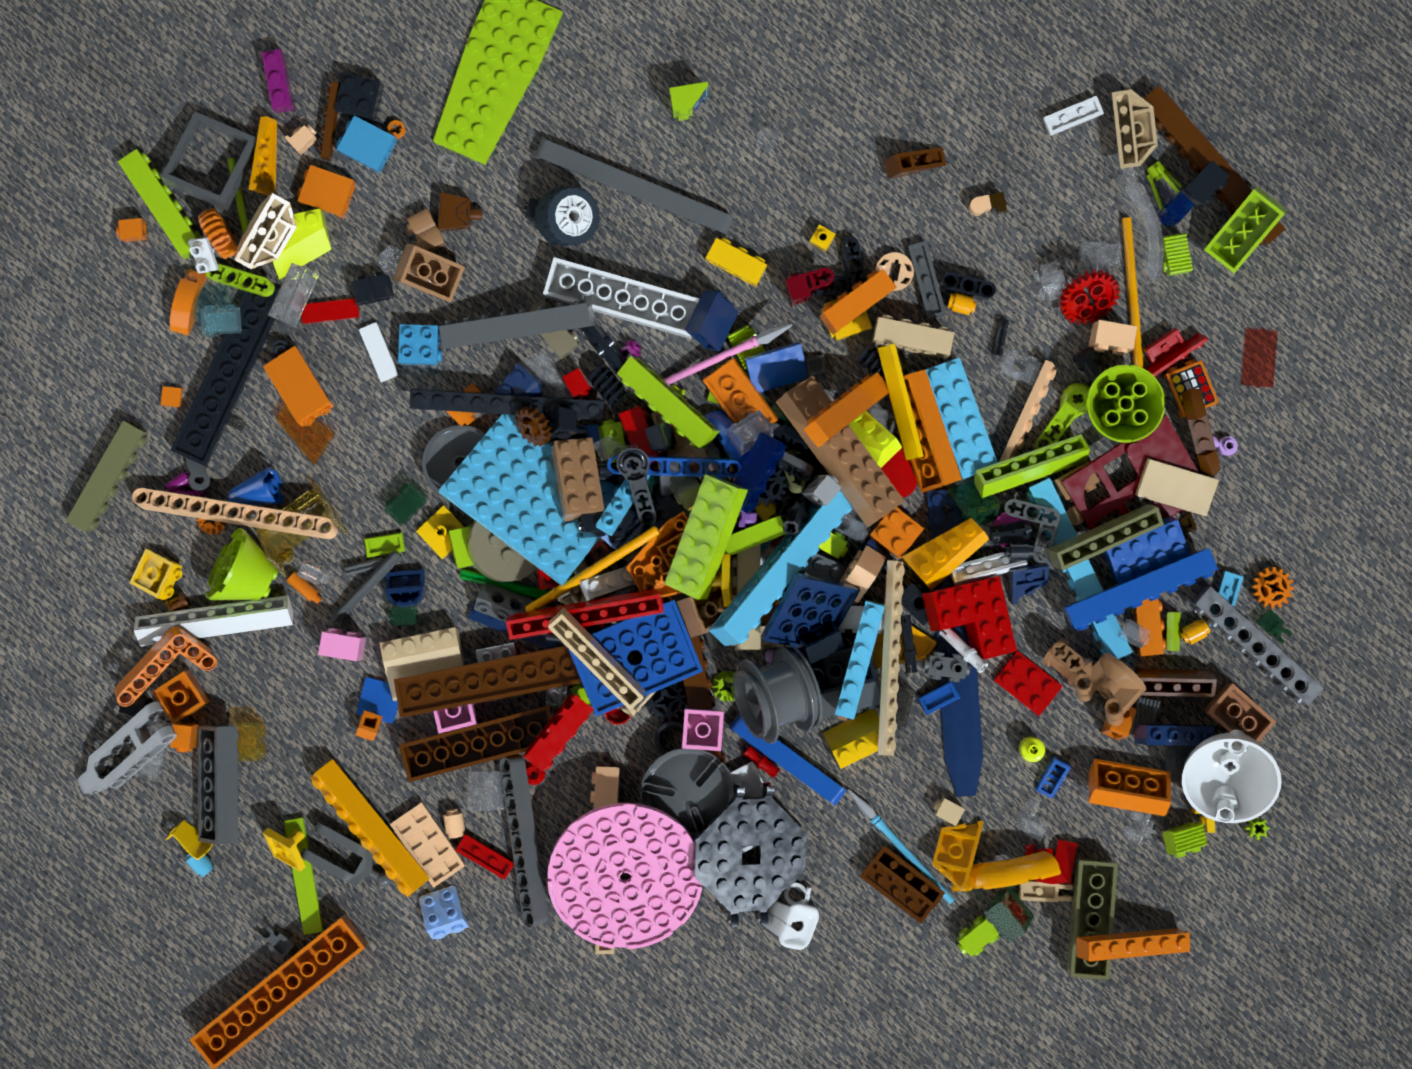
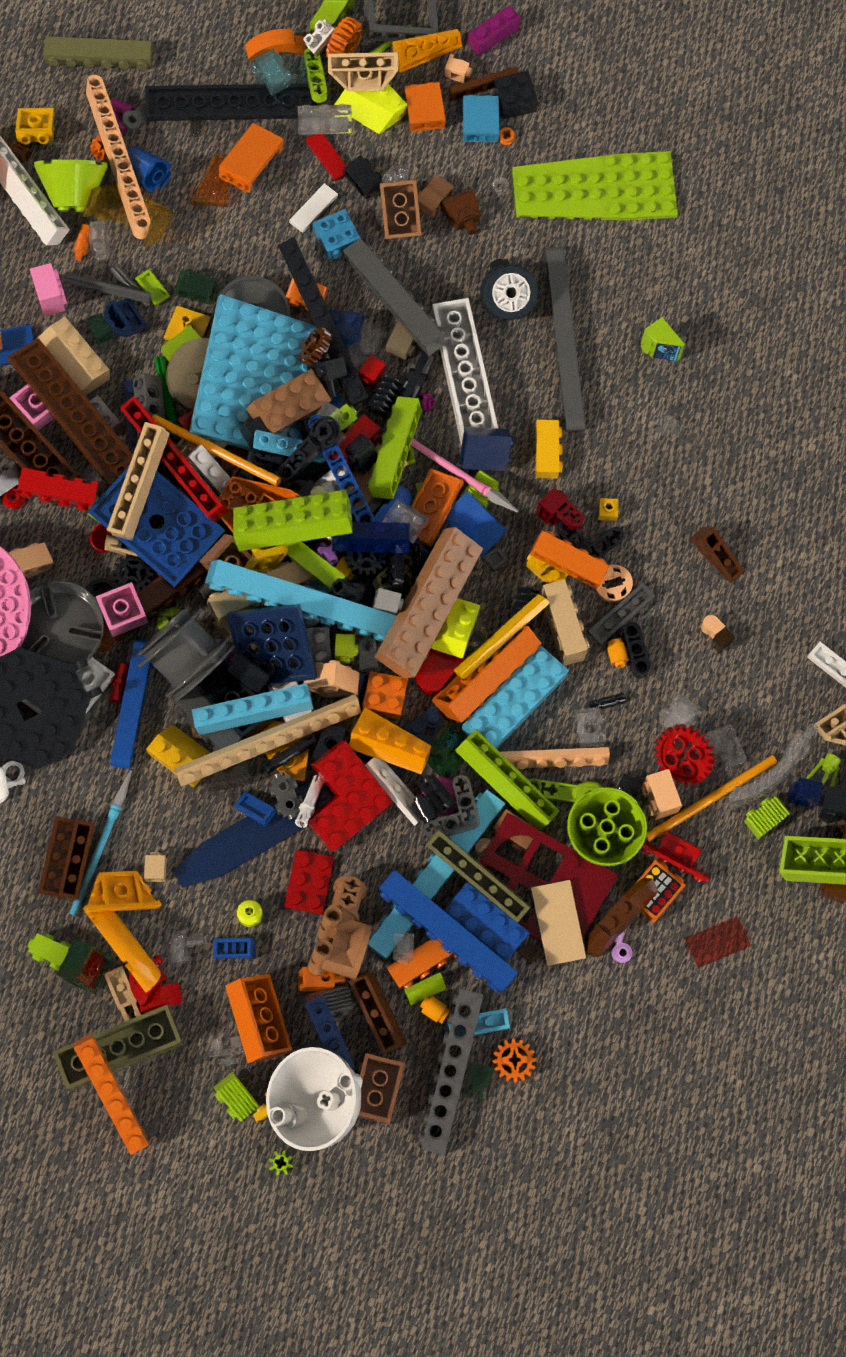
camera: 55 degrees right, 15 degrees down
(171, 396) = (191, 71): orange tile -> none
(280, 347) = (276, 129): black plate -> none
(847, 409) = (468, 587): orange brick -> none
(1026, 580) = (402, 833): dark blue wing -> none

